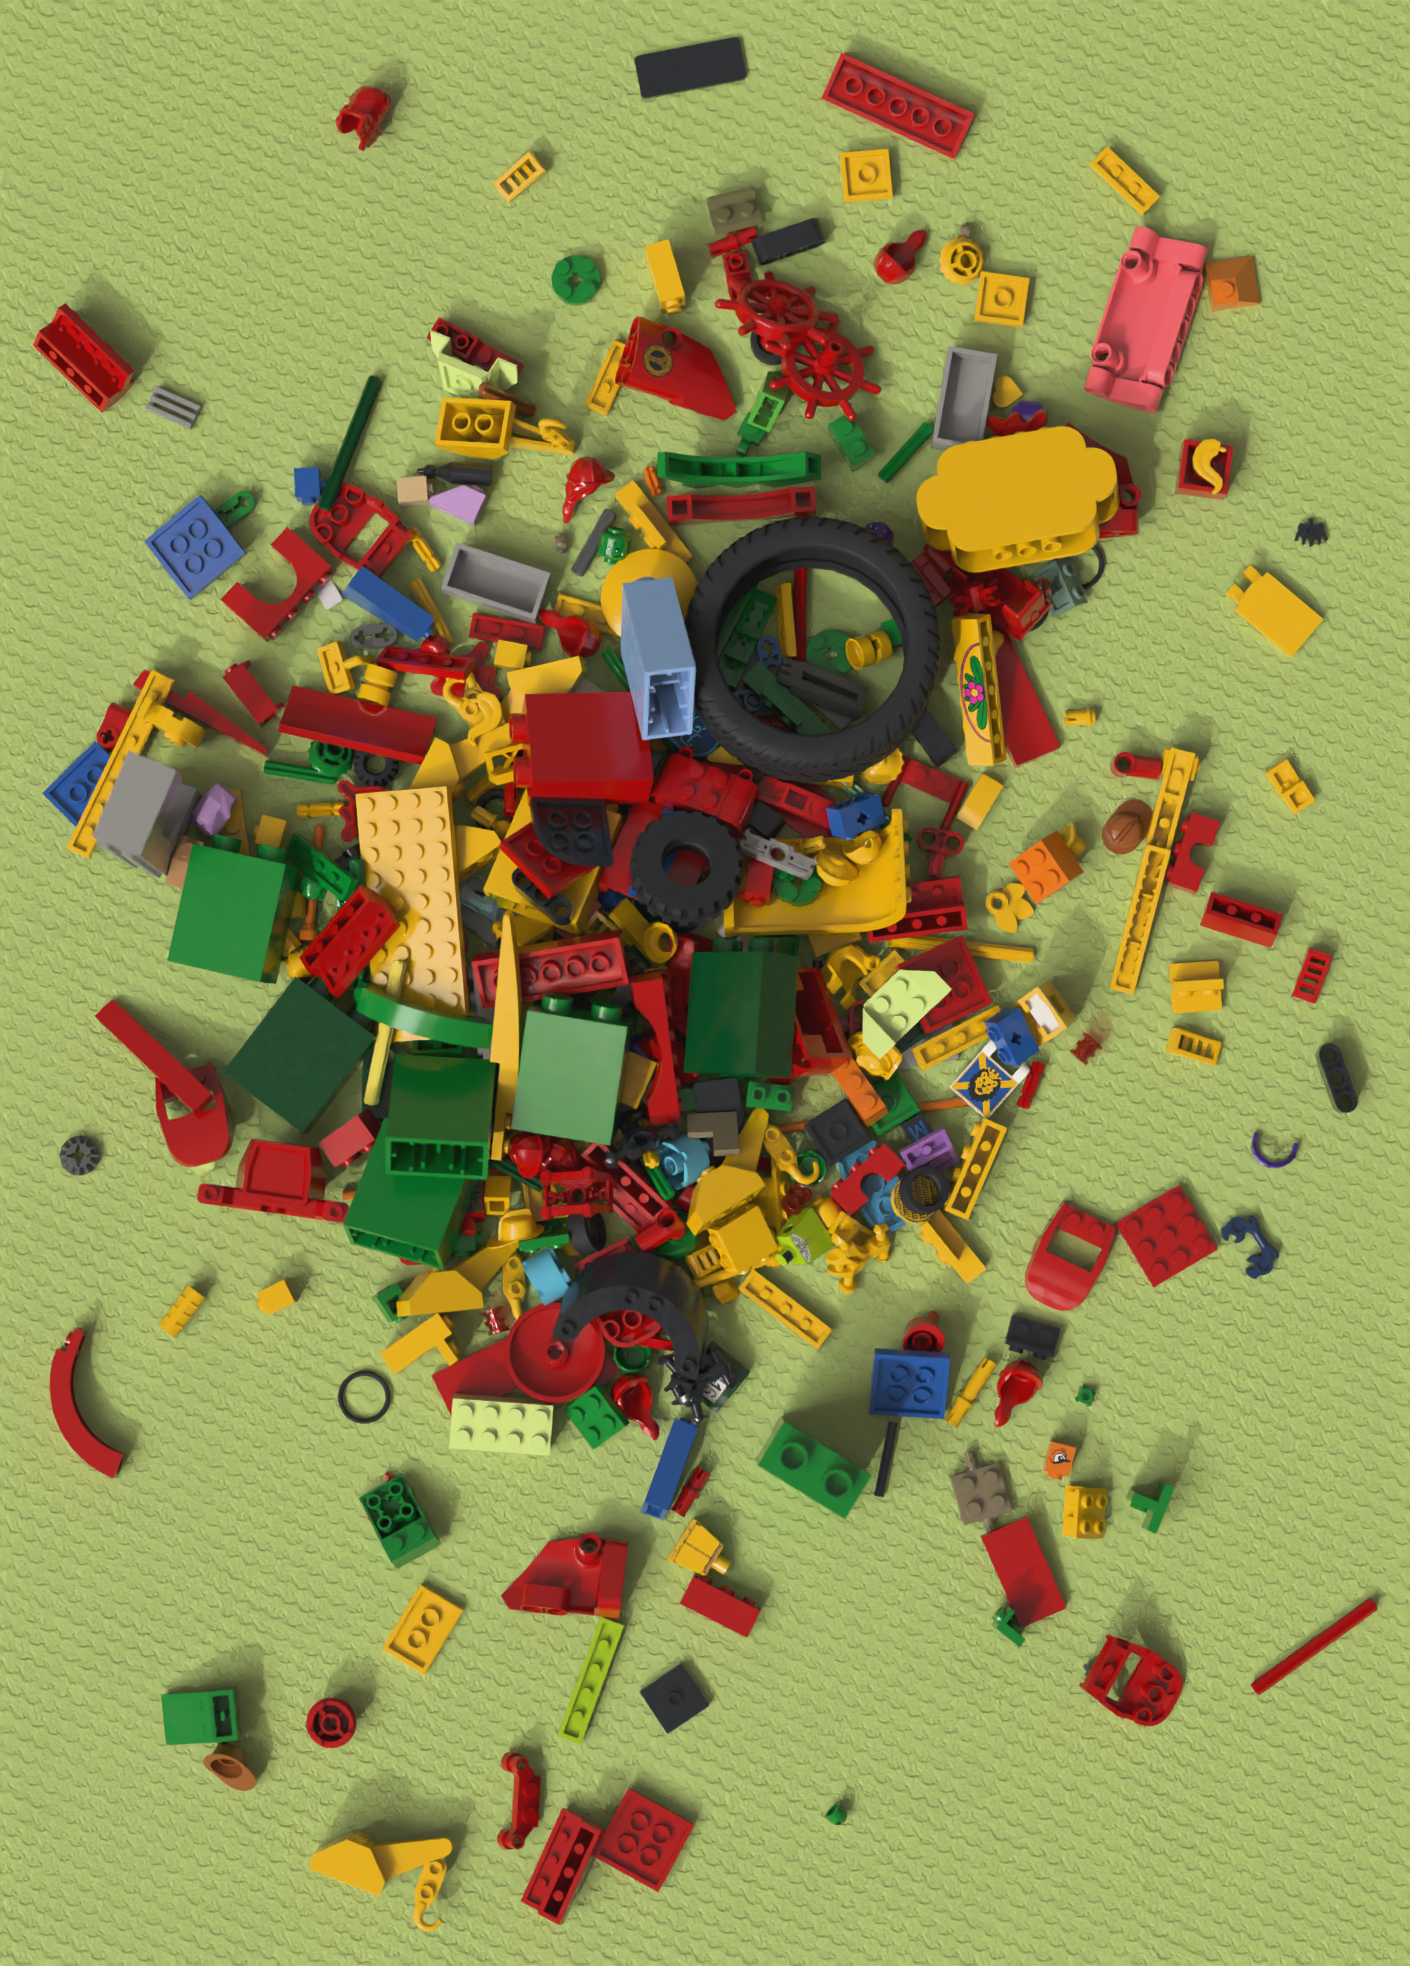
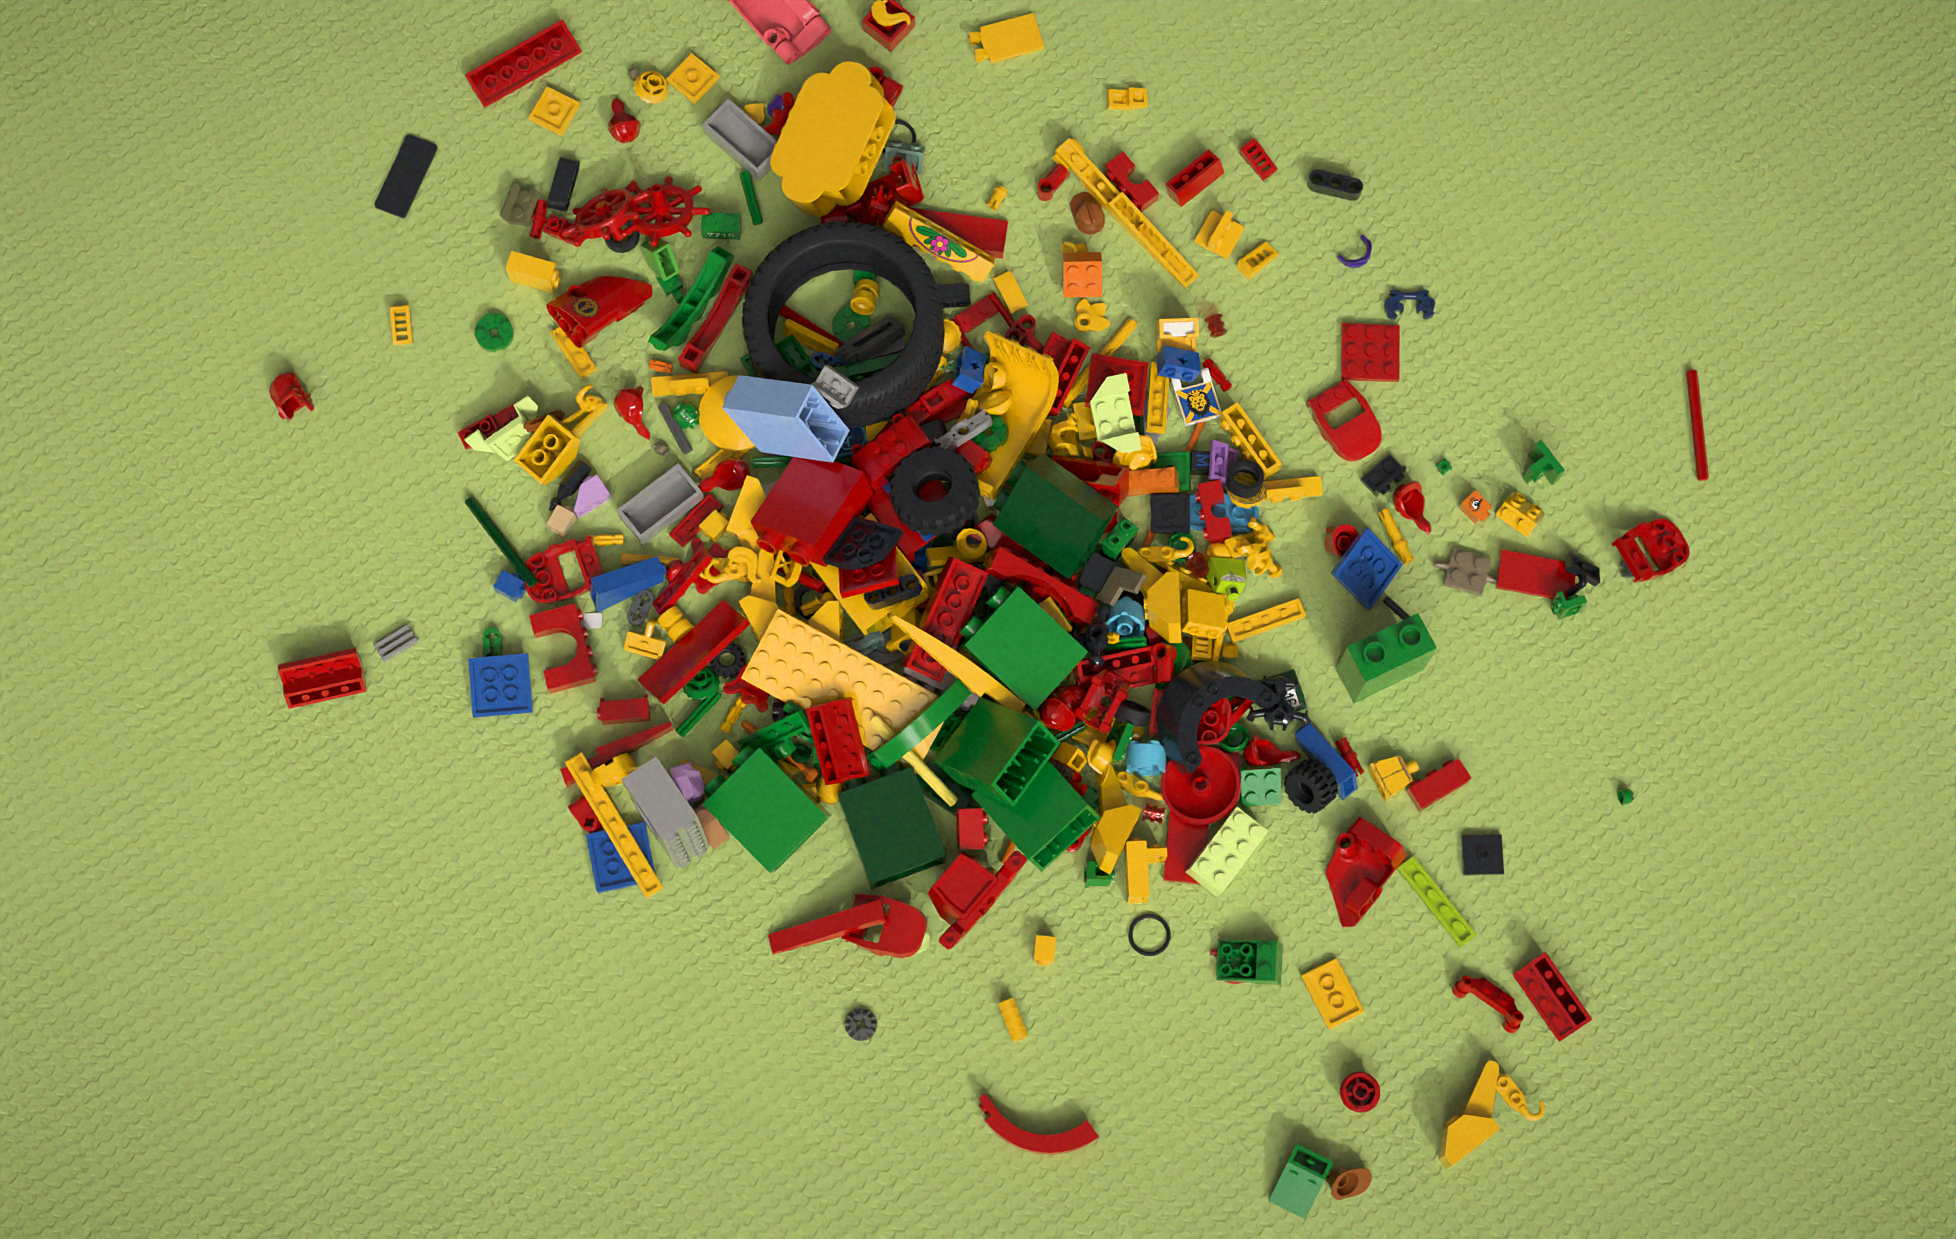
camera: 60 degrees left, 10 degrees down
(324, 909) = (801, 754): none -> dark green tile
(626, 1471) = (1311, 786): none -> black tyre
(643, 1839) = (1566, 933): red plate -> none
(716, 690) = (835, 387): none -> light grey bracket
(1060, 1619) = (1584, 570): none -> black plate

